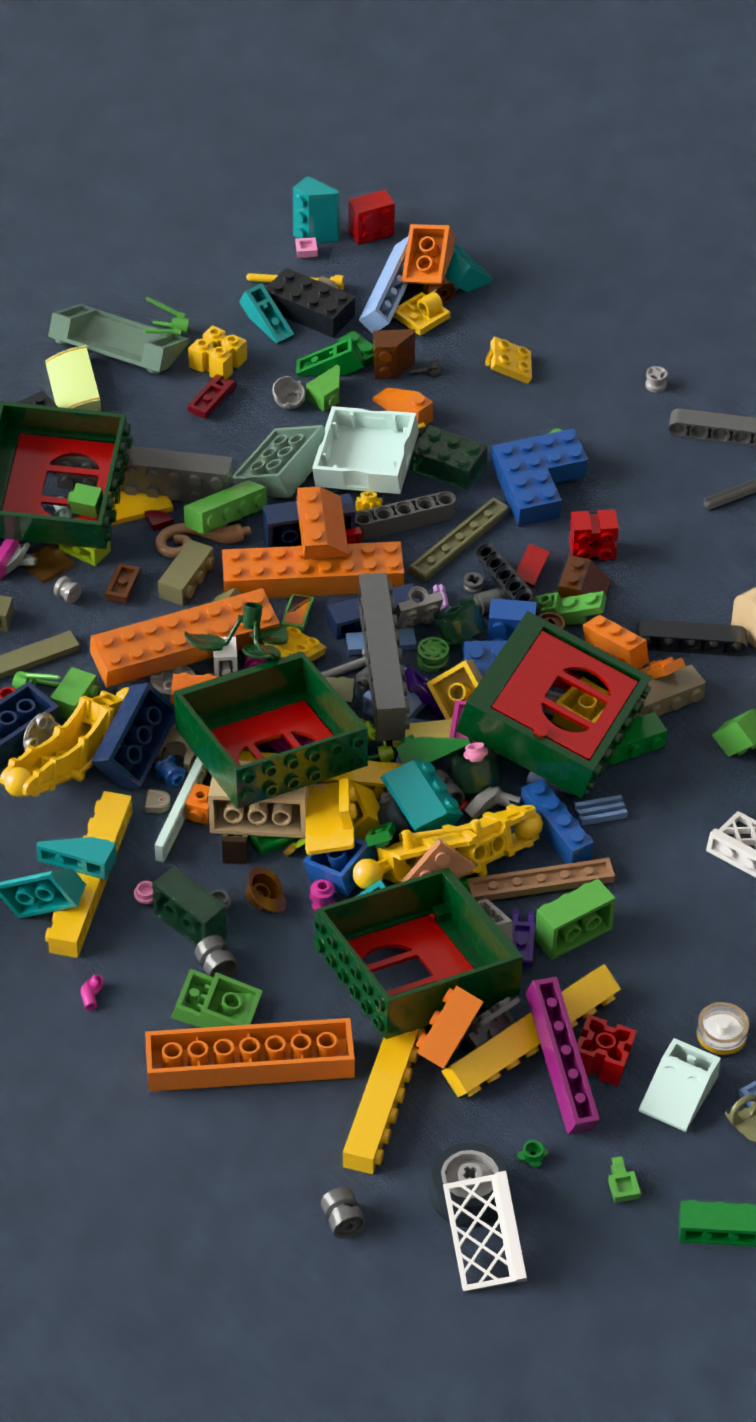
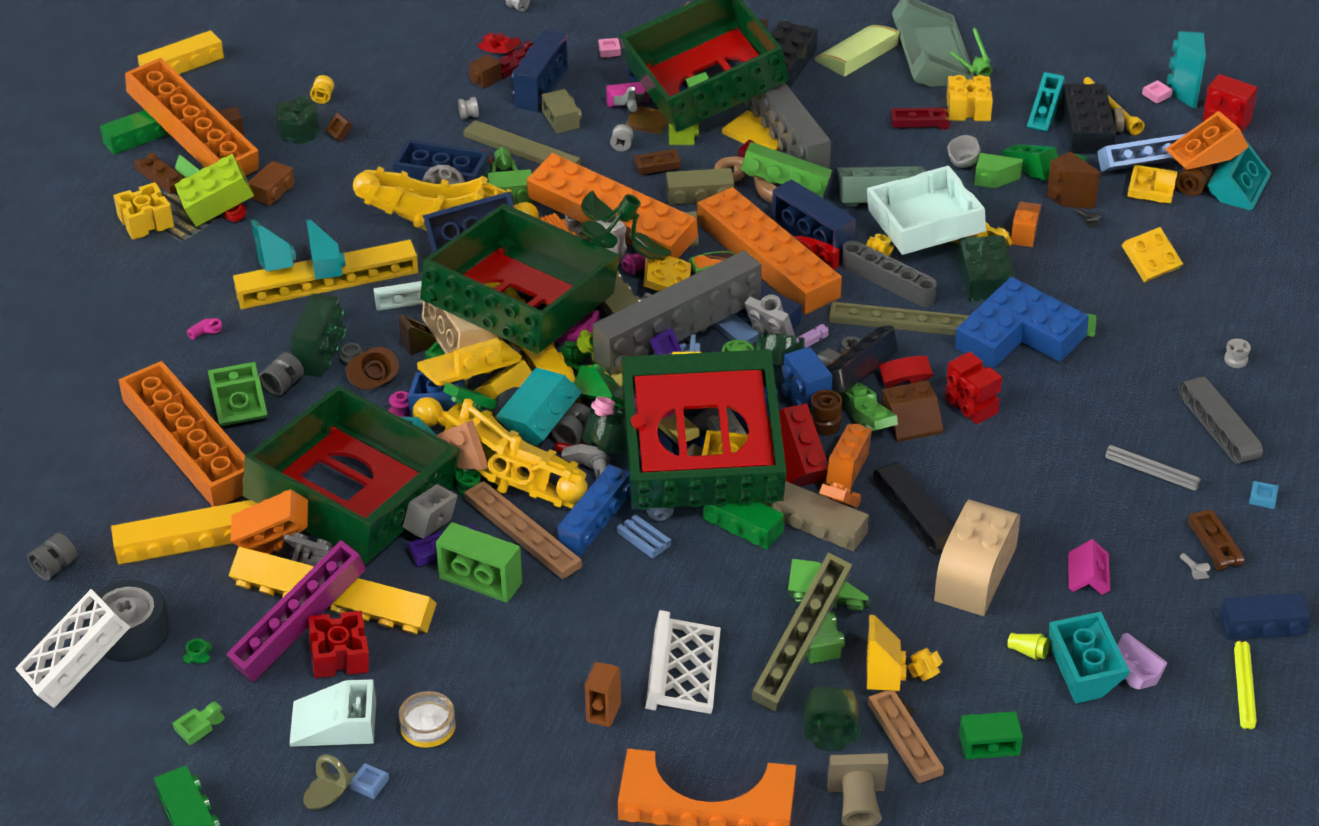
camera: 60 degrees right, 5 degrees down
(321, 523) = (797, 213): orange slope -> none

